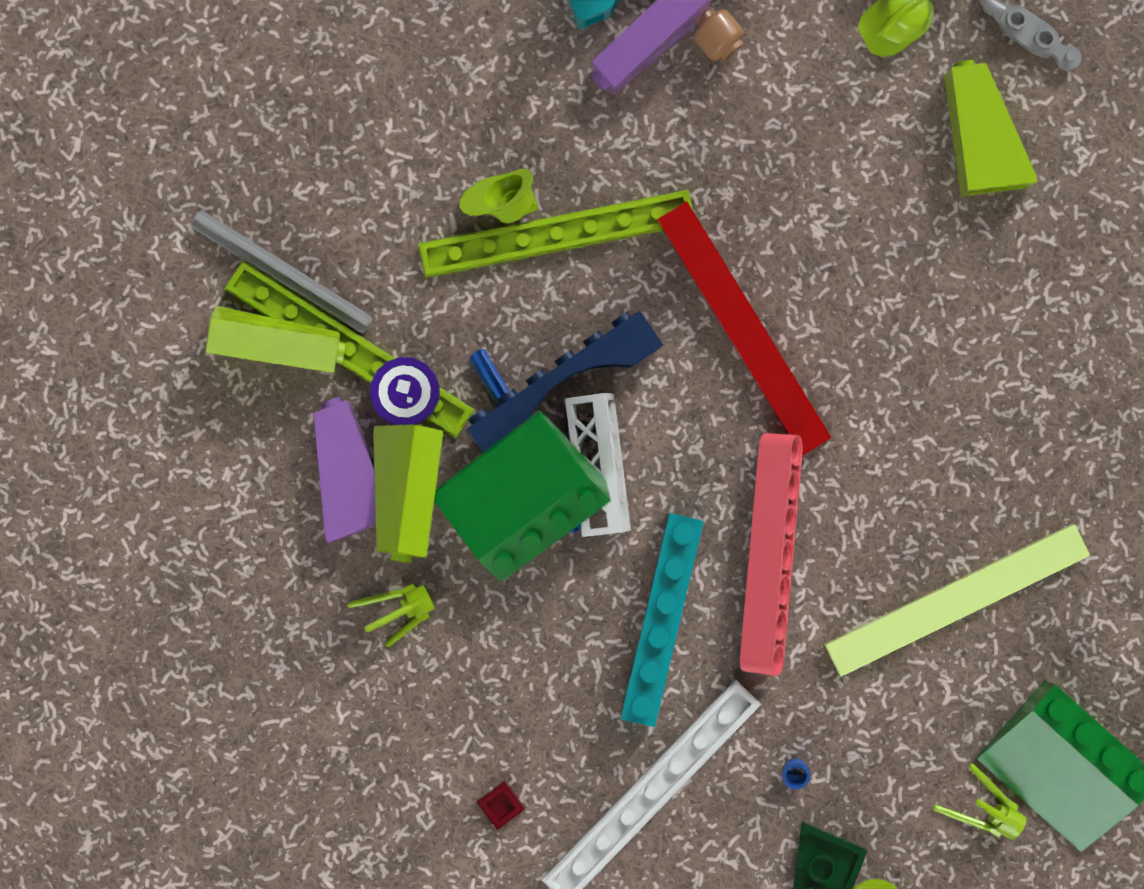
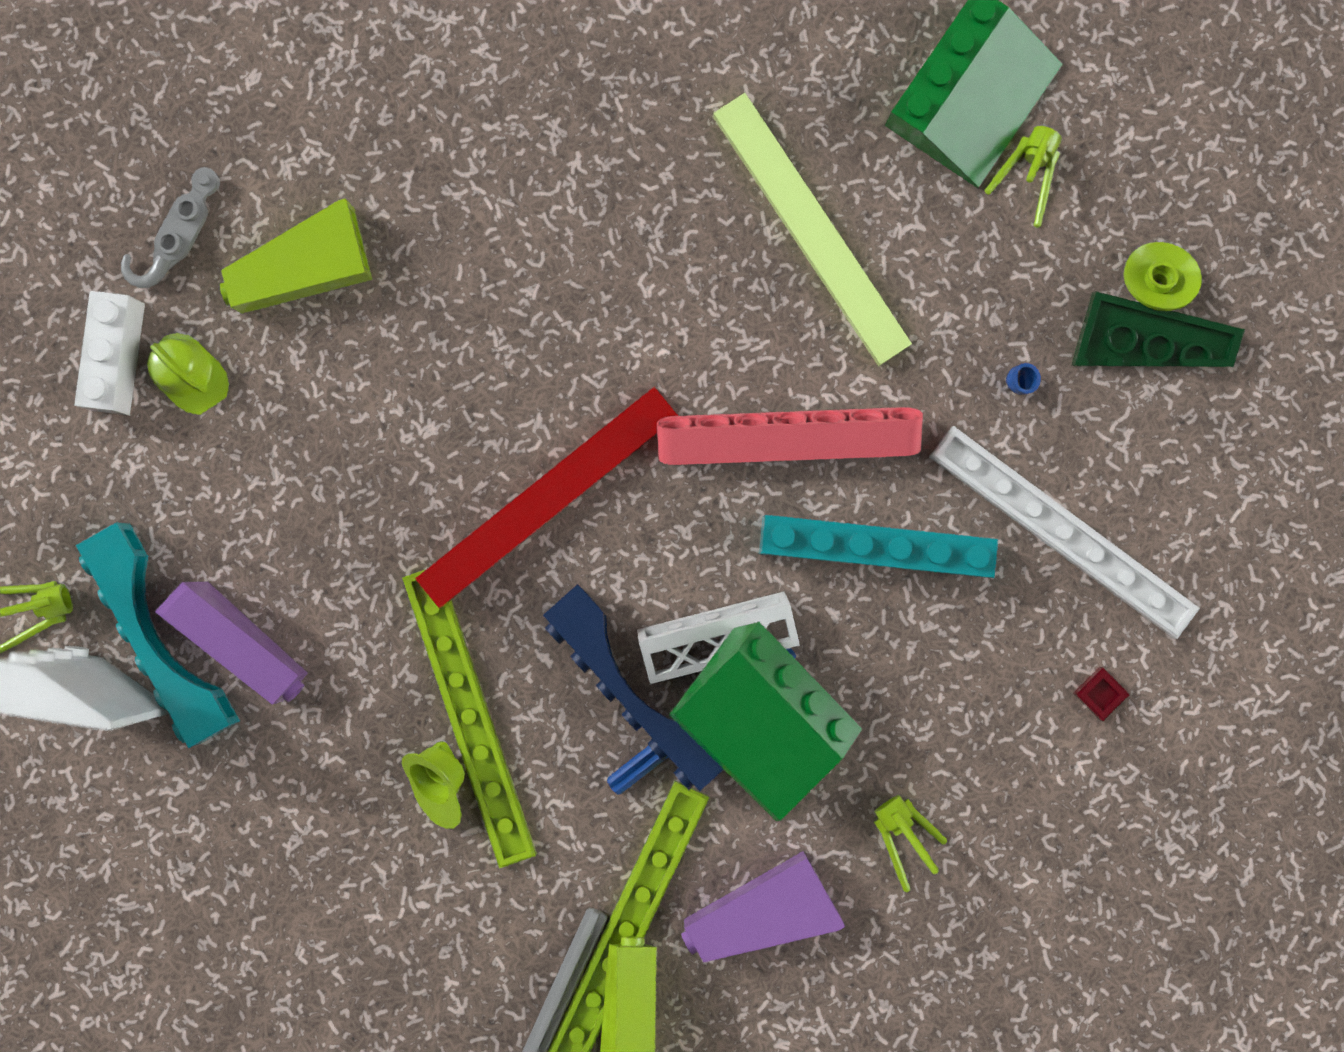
camera: 90 degrees left, 0 degrees up
(405, 391) = (665, 862): dark purple tile -> none
(405, 488) = (775, 850): lime slope -> none
(718, 35) = (226, 566): medium nougat head -> none

